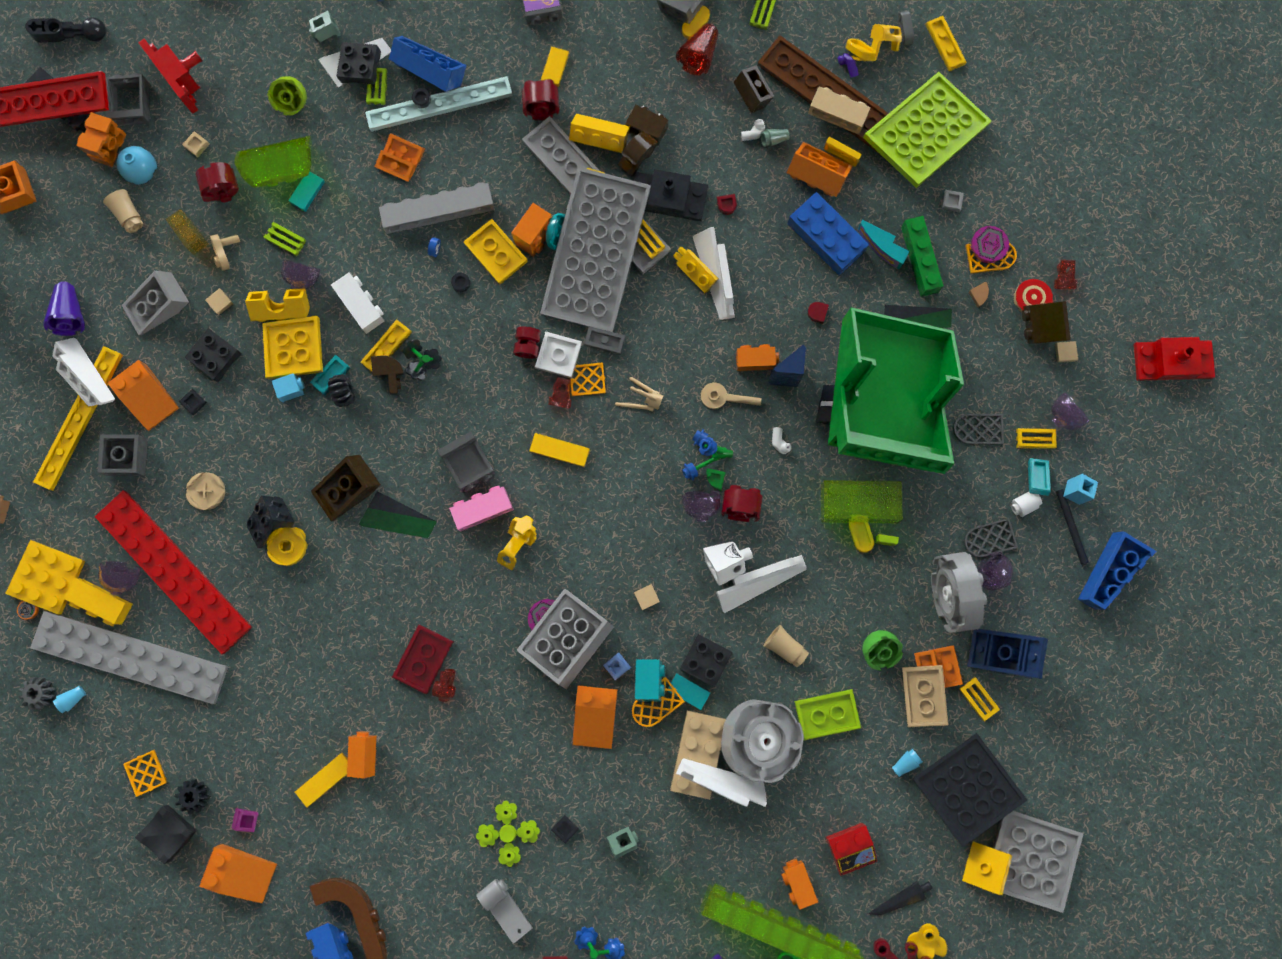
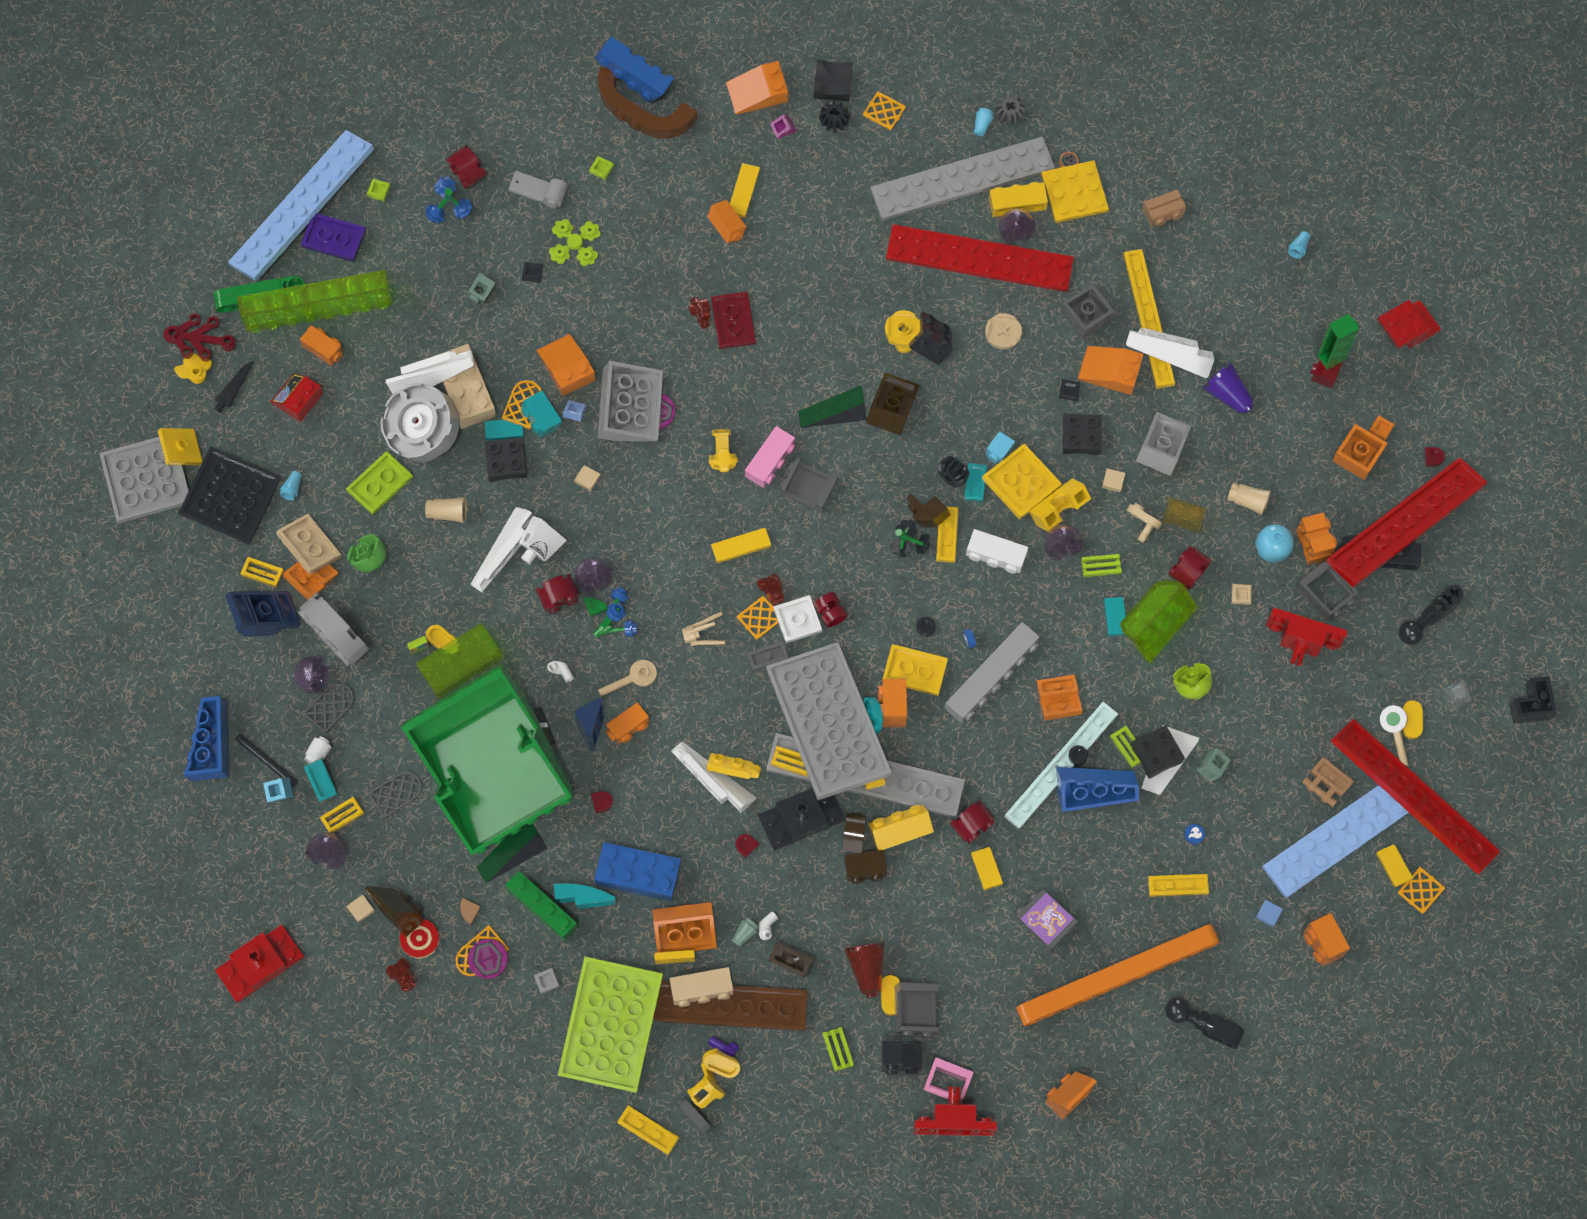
camera: 140 degrees right, 10 degrees down
(433, 893) = (601, 168): none -> lime tile

